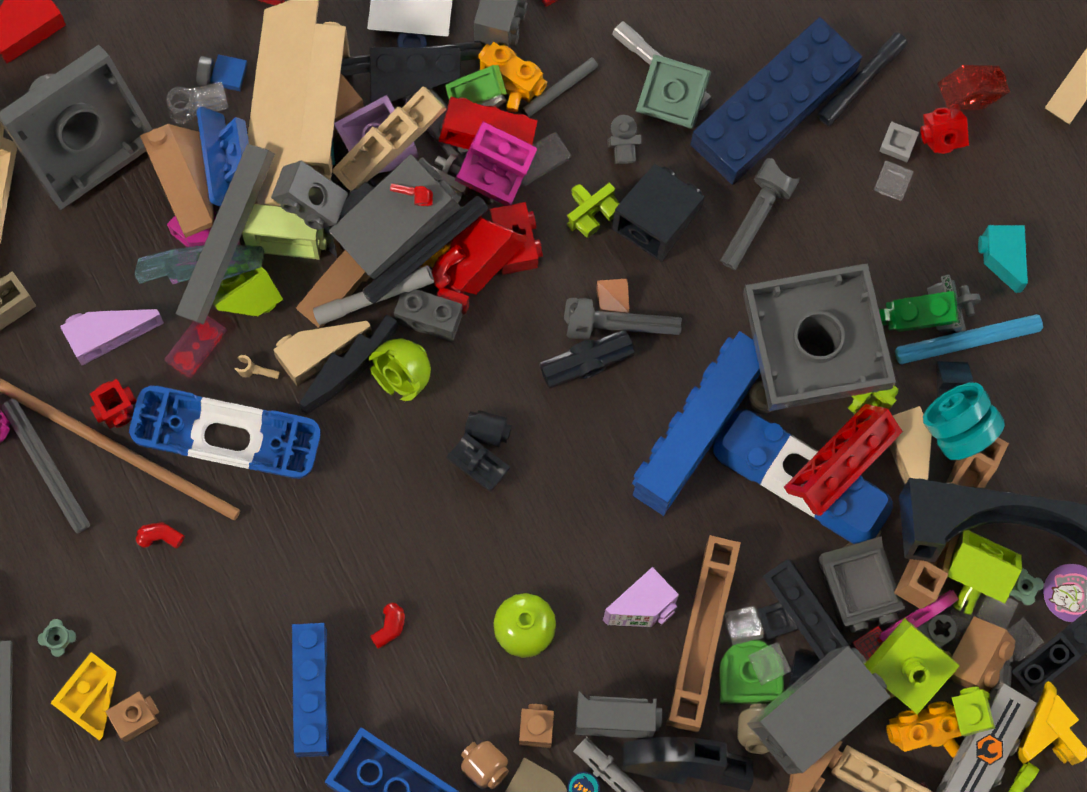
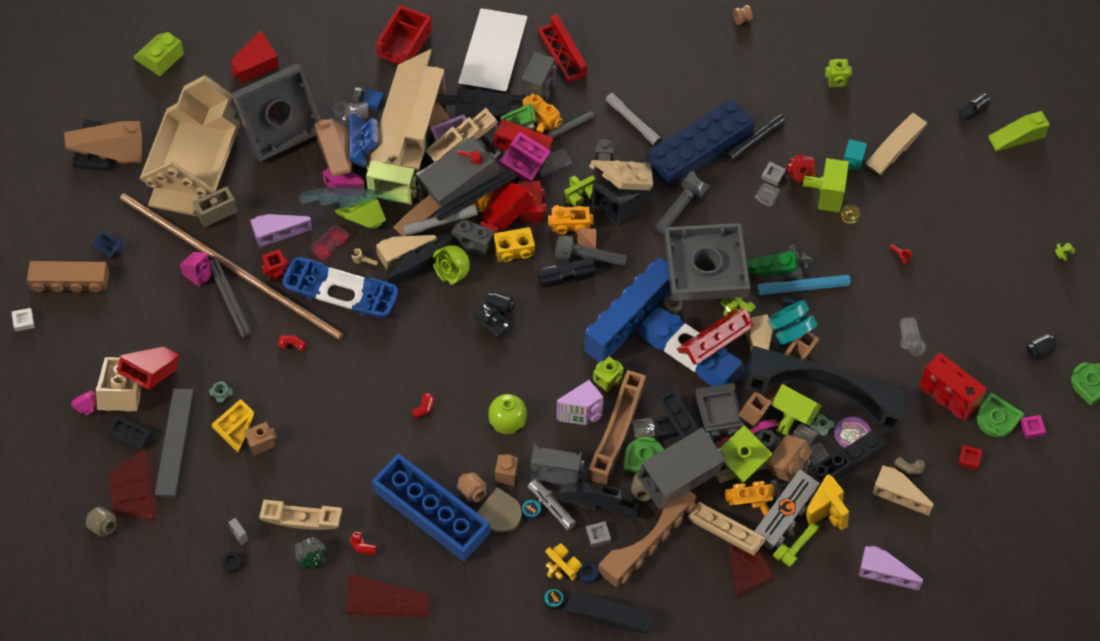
camera: 10 degrees right, 15 degrees down
(225, 234) = (356, 176): dark grey tile -> none
(309, 195) = (409, 154): dark grey brick -> none
(309, 690) = (369, 435): blue arch -> none
(443, 263) = (485, 206): red arm -> none
(493, 312) = (513, 240): none -> yellow brick
(574, 264) = (569, 219): none -> light orange brick
(666, 179) = (626, 174): none -> tan wing
(673, 91) = (638, 132): sand green tile -> none
(677, 548) = (608, 373): none -> lime brick
(769, 663) = (654, 446): clear tile -> none
(973, 87) = (821, 144): clear red brick -> none
(973, 711) = (779, 483): lime bracket -> none
(996, 159) = (830, 184): none -> lime brick
(1006, 254) = (831, 239): teal slope -> none
(1026, 96) = (855, 154): none -> teal brick
(1029, 201) = (850, 214): none -> clear yellow tile

